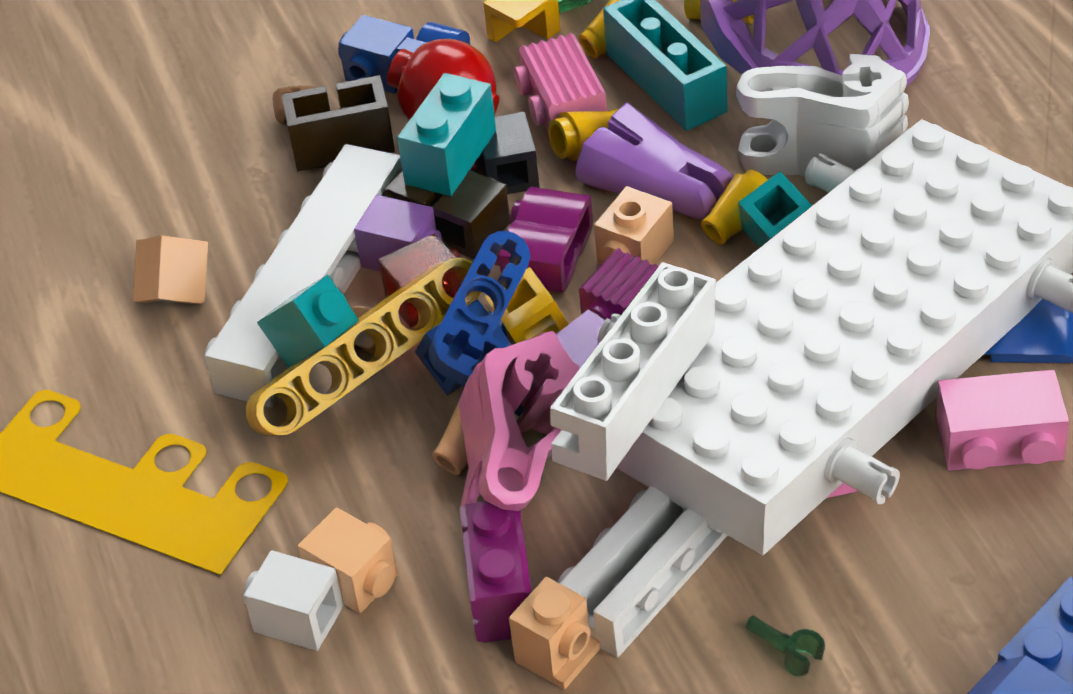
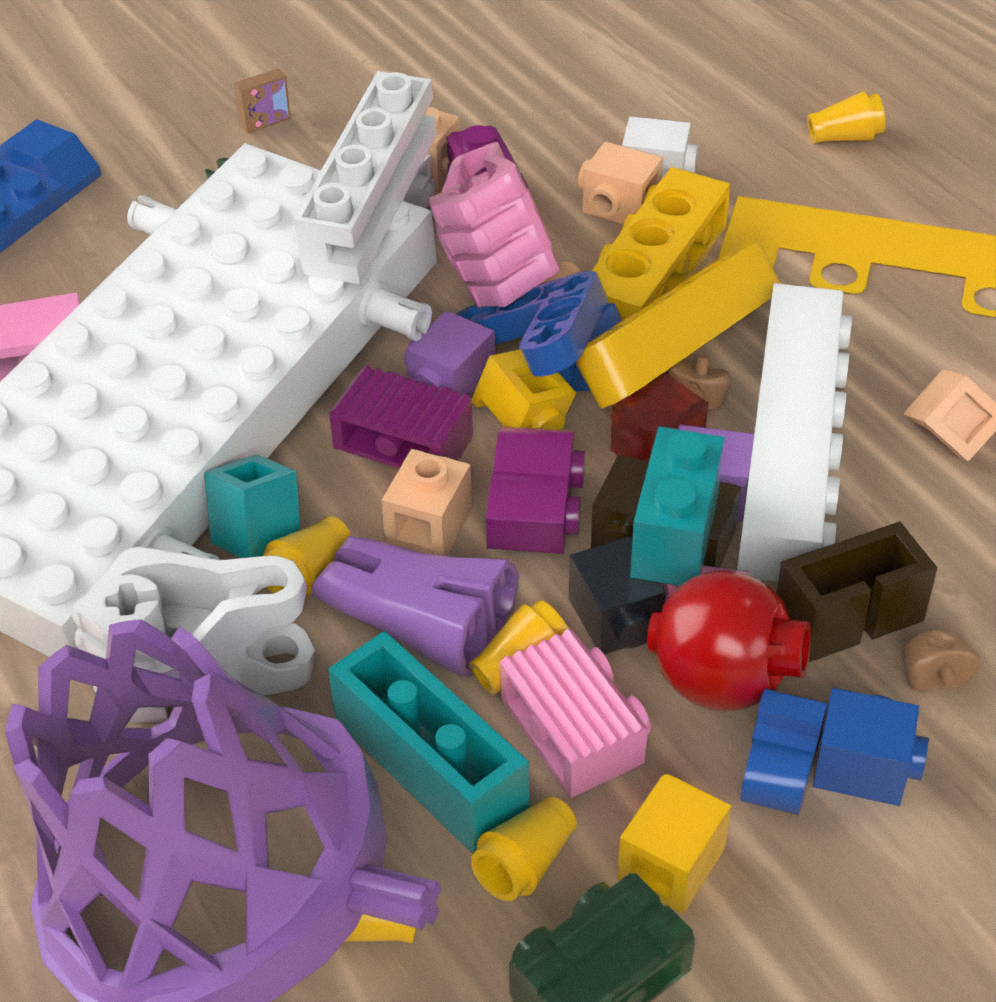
camera: 165 degrees right, 0 degrees up
(46, 639) = (849, 120): none -> yellow cone
(308, 321) = (743, 298): teal brick -> none
(351, 456) = (663, 239): none -> yellow brick

